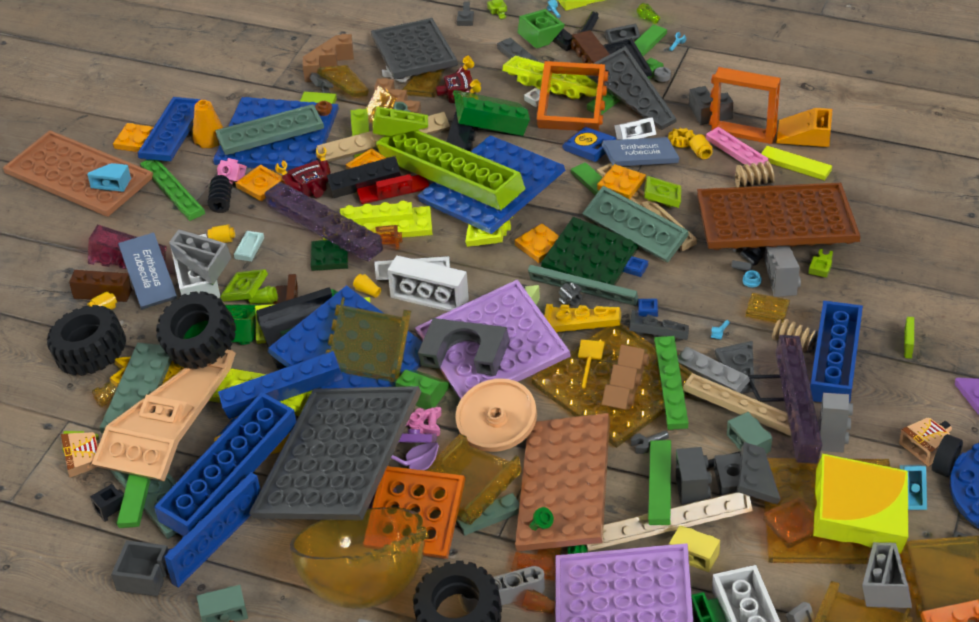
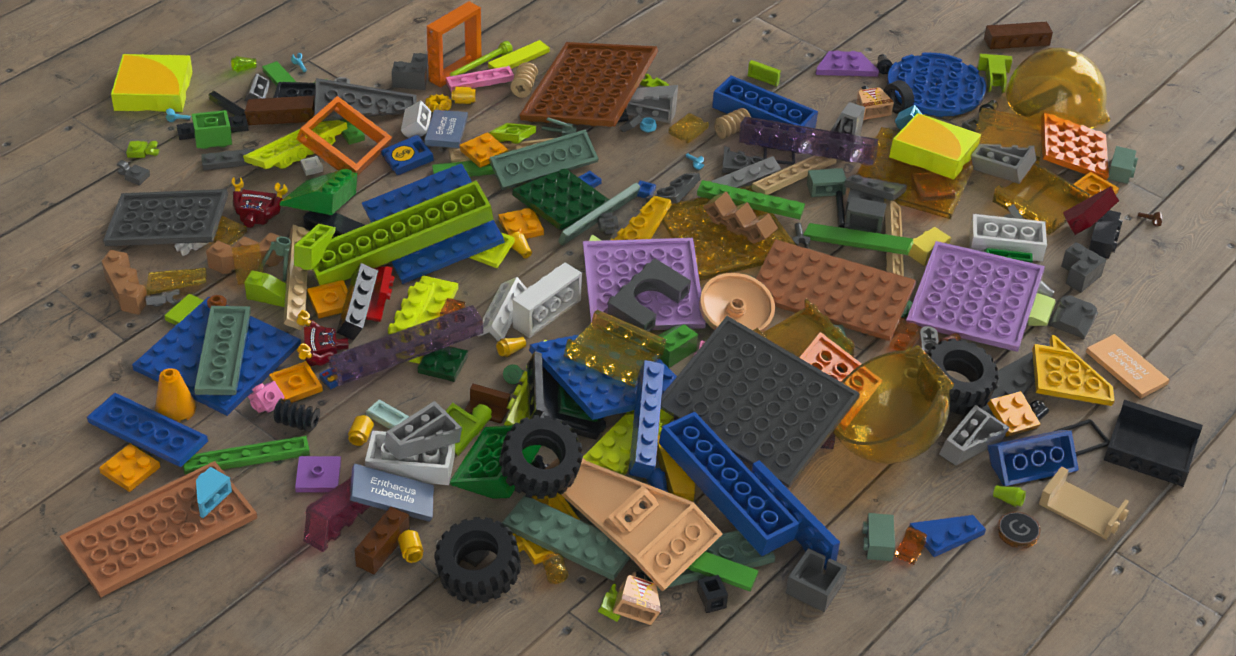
camera: 75 degrees left, 0 degrees up
(165, 228) = (318, 473): none -> medium lavender plate
(507, 249) = (521, 245): none -> yellow cone
(542, 519) = (881, 306): green plate -> none
(590, 350) = (686, 230): yellow piece -> none
(695, 227) = (567, 129): none -> sand green plant
(797, 148) = (503, 49): none -> lime piece
(806, 128) = (494, 30): light orange slope -> none

